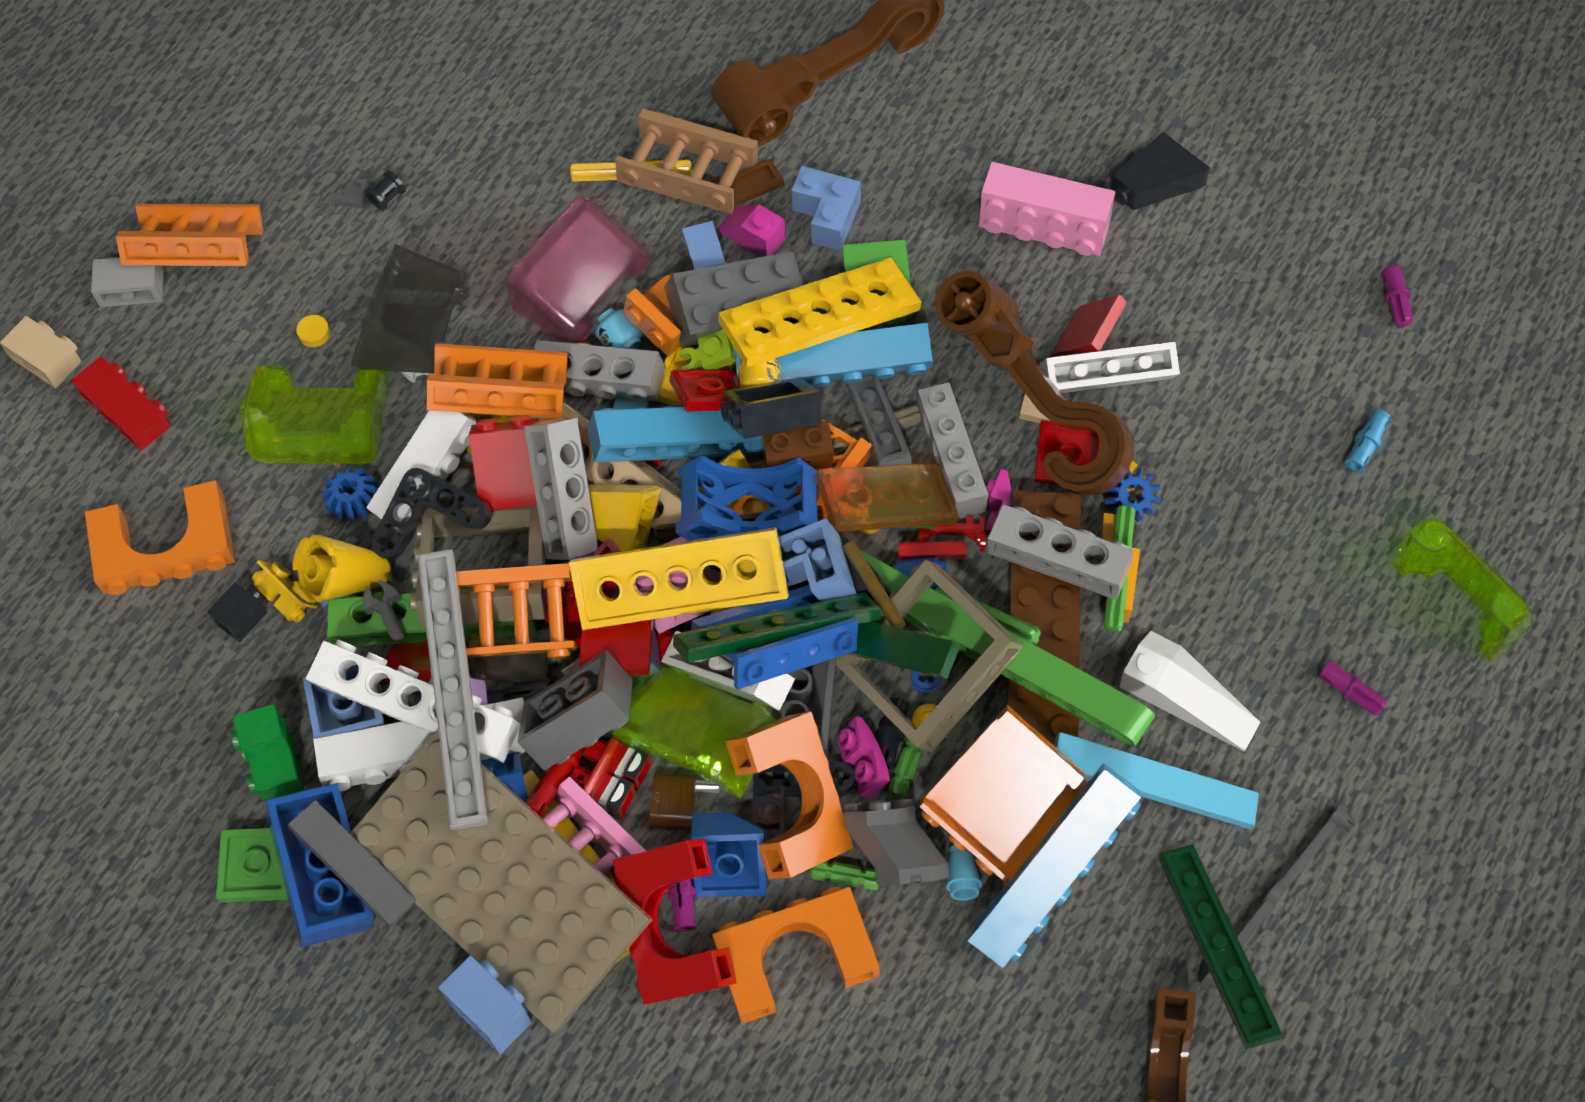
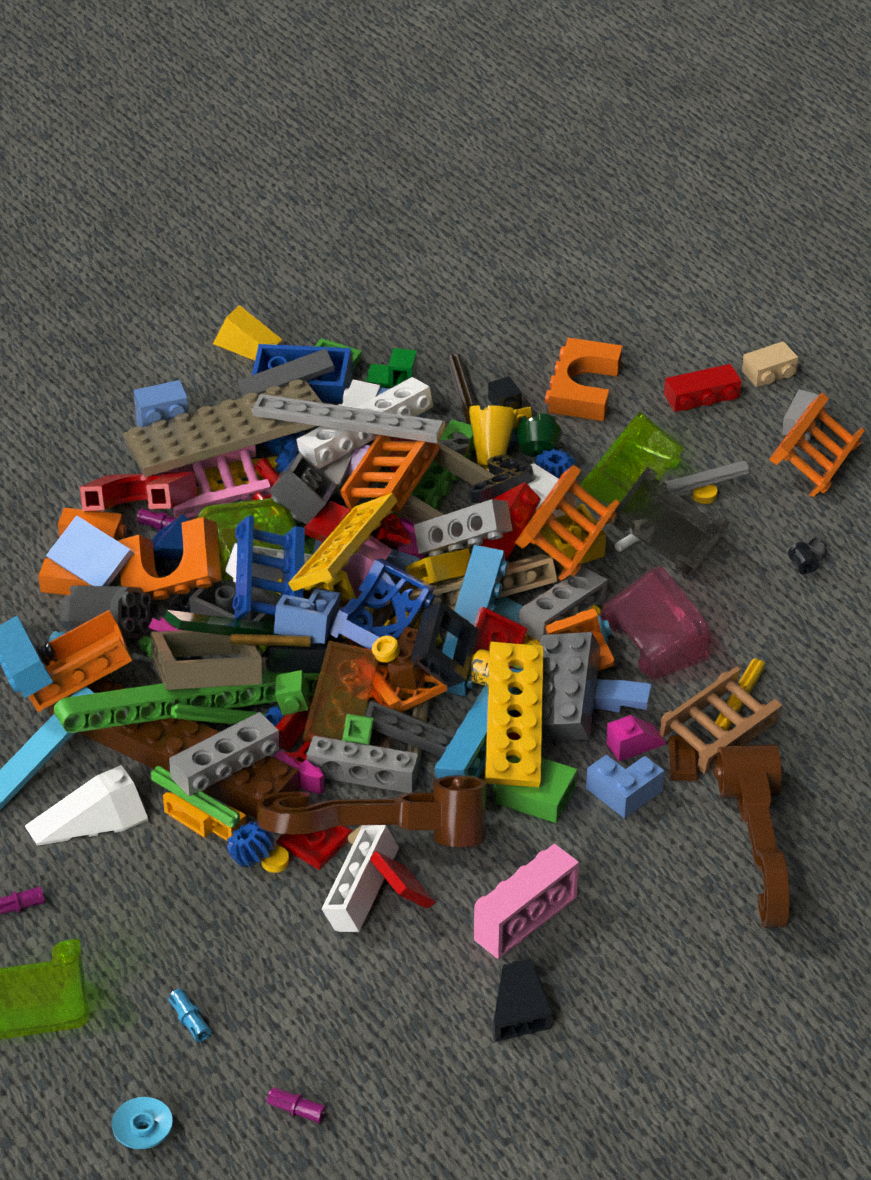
camera: 115 degrees right, 20 degrees down
(245, 670) = (462, 384): none -> dark brown axle
(261, 996) = (244, 333): none -> yellow slope
(300, 329) = (708, 477): none -> light grey axle
(308, 518) = (538, 434): none -> dark green cone
(772, 627) = (270, 566): dark green tile -> none
(820, 455) = (385, 648): none -> yellow tile
(825, 906) = (89, 553): none -> light blue tile
(914, 547) = (292, 692): none -> bright green brick
(926, 455) = (358, 729): none -> bright green tile
(1011, 858) = (47, 653): none -> black bush
(1521, 393) = (138, 1113): none -> medium azure dish

